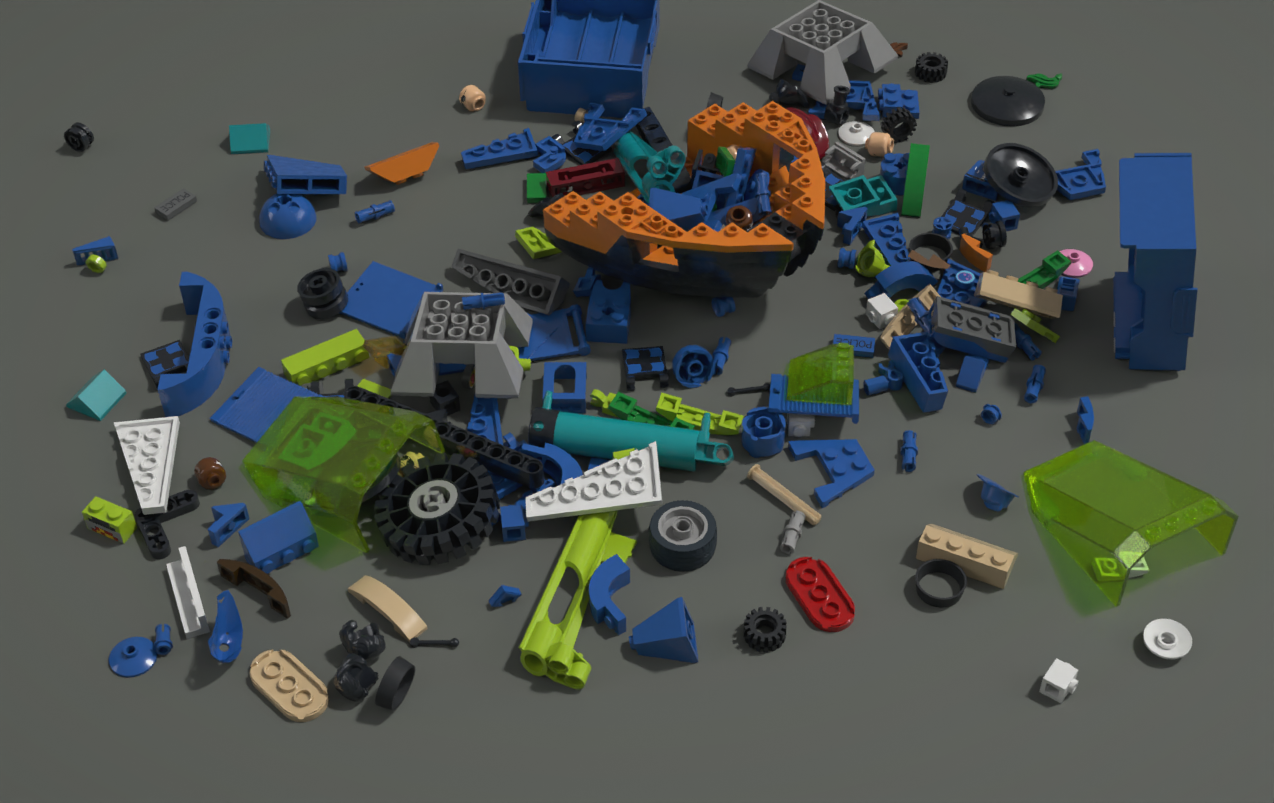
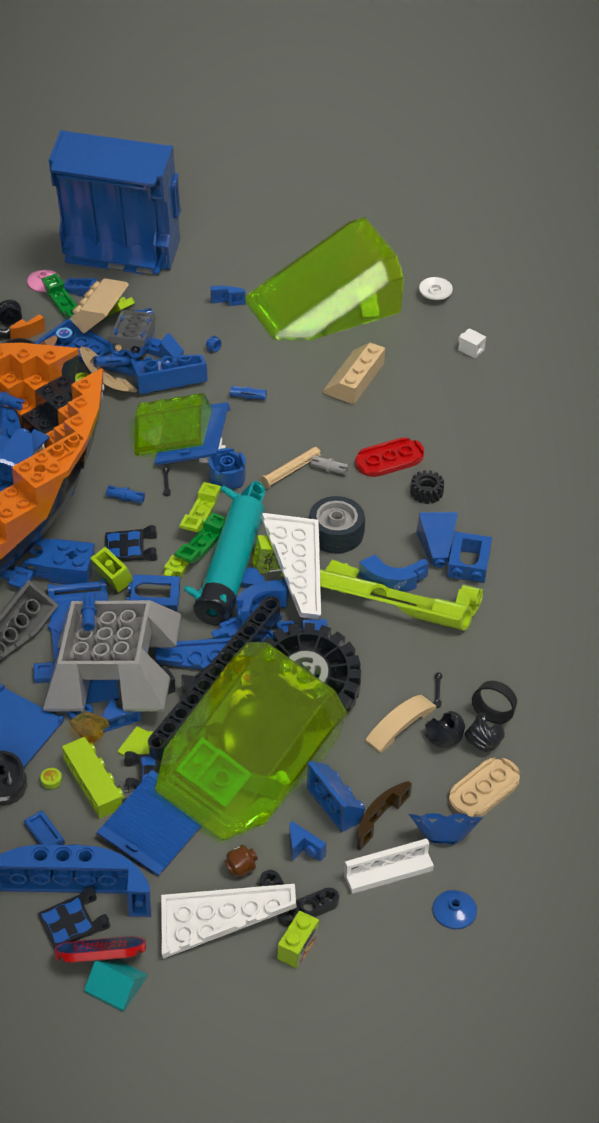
camera: 90 degrees left, 0 degrees up
(122, 376) = (100, 949): none -> tile
(163, 643) = (440, 882): blue pin -> none
(269, 336) = (43, 829): none -> blue tile
(330, 332) = (51, 778): none -> lime tile
(503, 595) = (393, 641): blue tile -> none
(596, 346) = (111, 569): none -> lime brick
(660, 684) = (473, 544): none -> blue panel
(693, 366) = (140, 508): blue cylinder -> none
(740, 216) = (26, 419): reddish brown head -> none
(842, 461) = (260, 431): blue wing -> none
(862, 345) = (123, 413): blue tile -> none
(890, 379) = (166, 392): blue bar -> none
(940, 566) = (384, 379): black tyre -> none
(994, 495) = (302, 351): blue piece -> none
(1035, 384) = (184, 316): blue pin -> none

